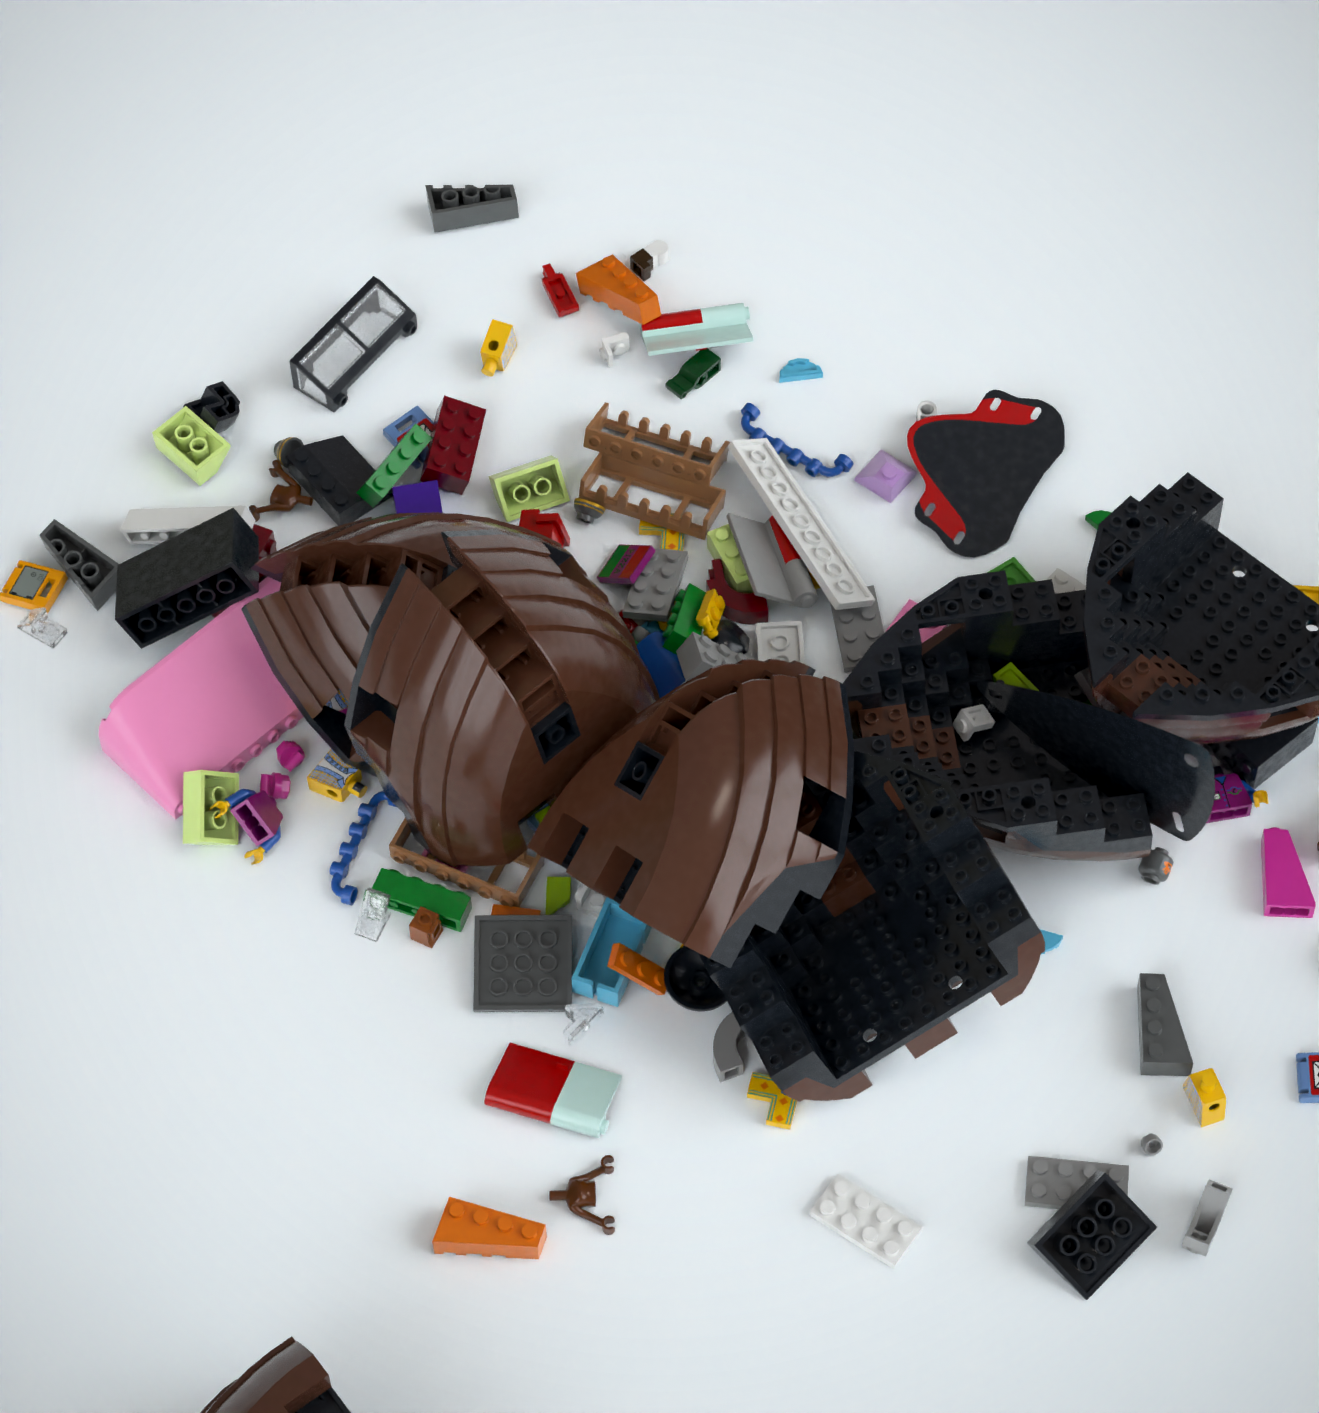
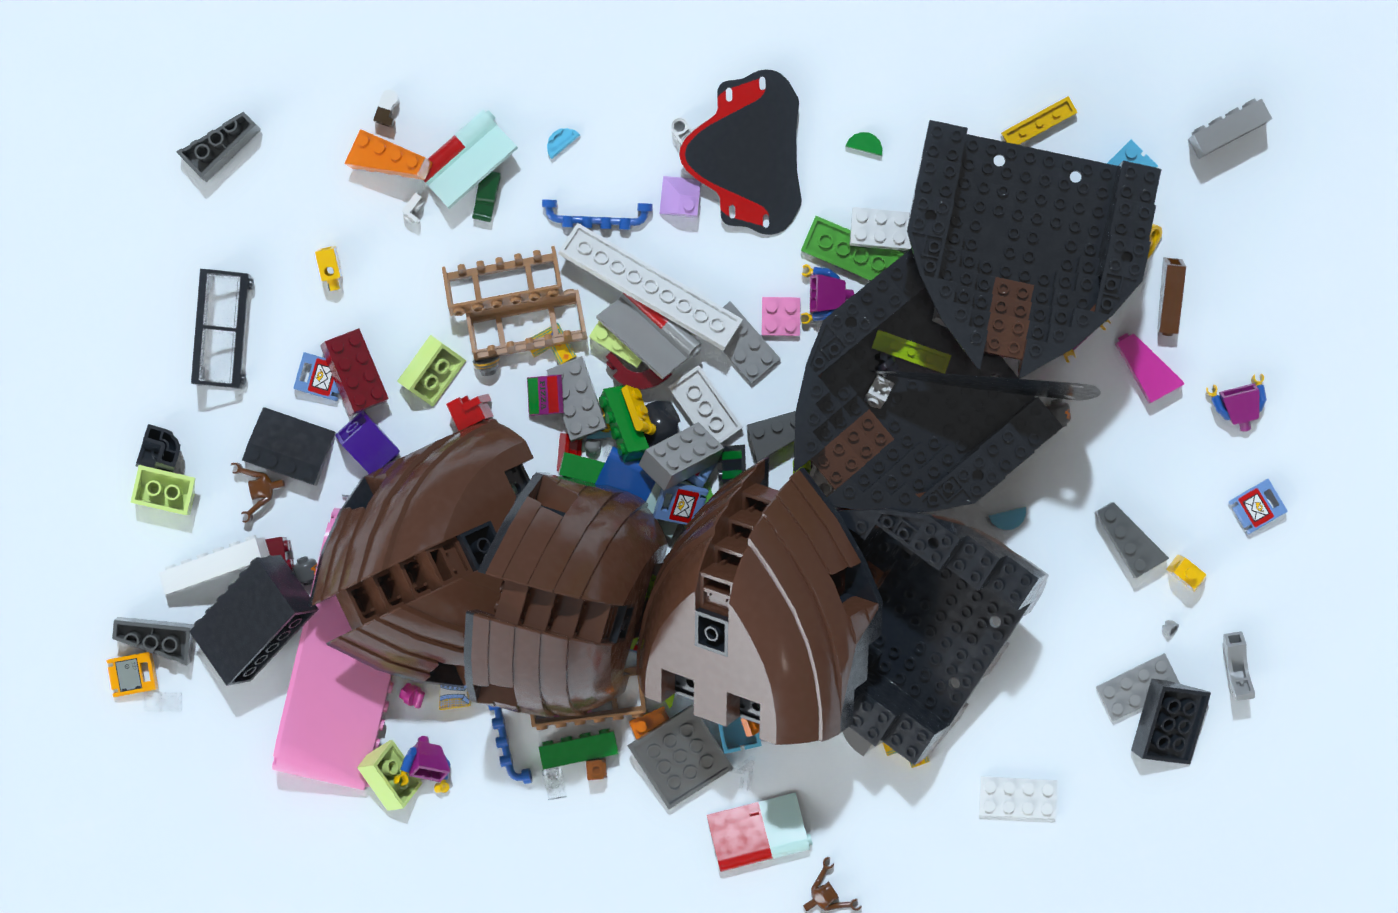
camera: 30 degrees left, 30 degrees up
(275, 785) = (418, 725): dark pink piece -> none
(286, 447) = (235, 448): dark grey piece -> none
(394, 465) = (327, 421): green brick -> none
(558, 292) = (337, 181): red hinge -> none

